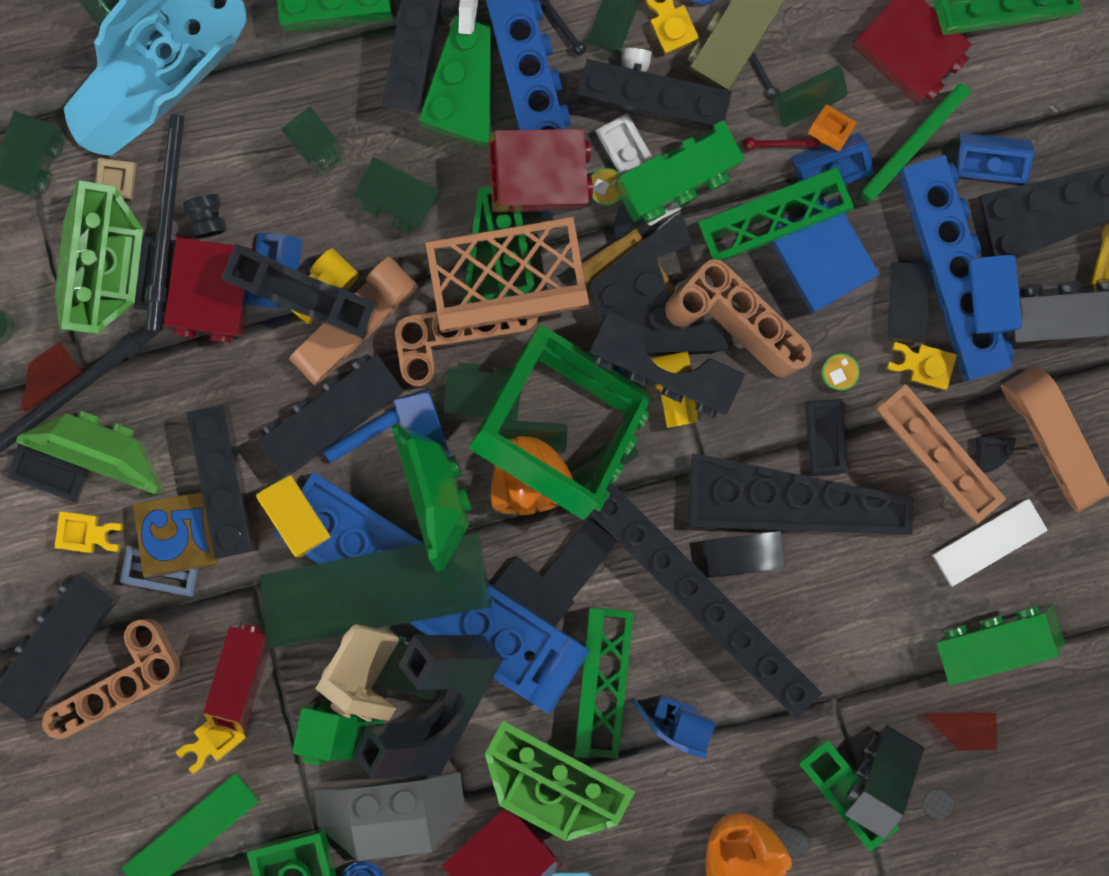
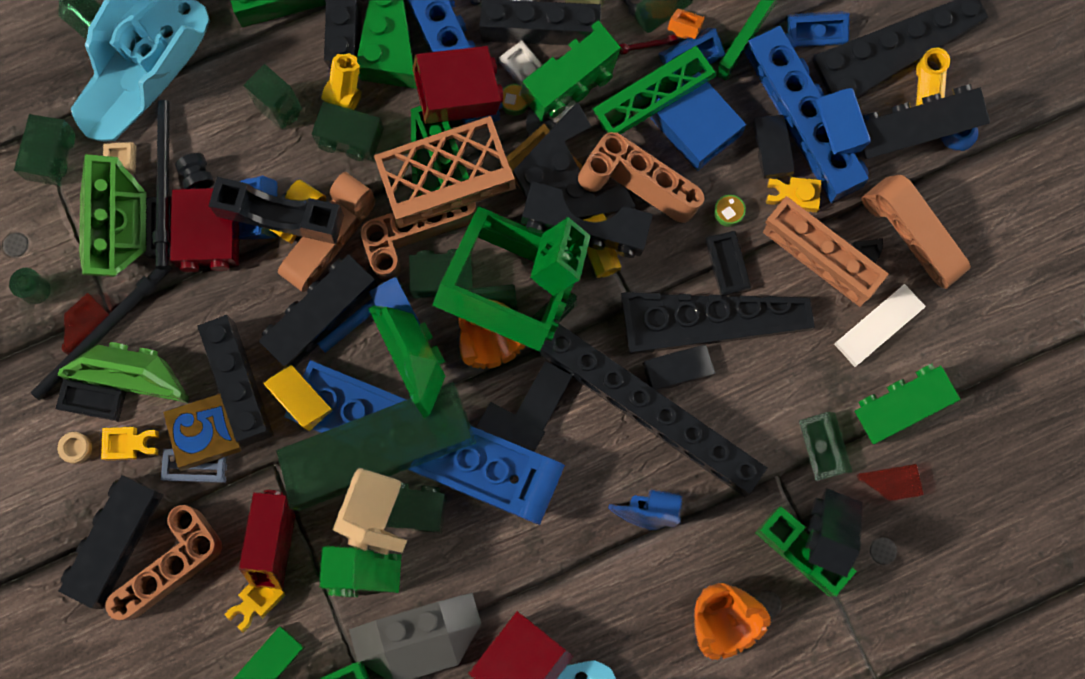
camera: 10 degrees left, 10 degrees down
(23, 526) = (74, 447): none -> tan tile
(399, 138) = (343, 80): none -> yellow piece
(423, 745) = (439, 567): black arch -> none
(552, 786) = (552, 587): bright green wedge -> none
(589, 683) = (569, 495): green fence -> none
(627, 411) = (560, 256): none -> green brick
(896, 673) = (825, 446): none -> clear green slope

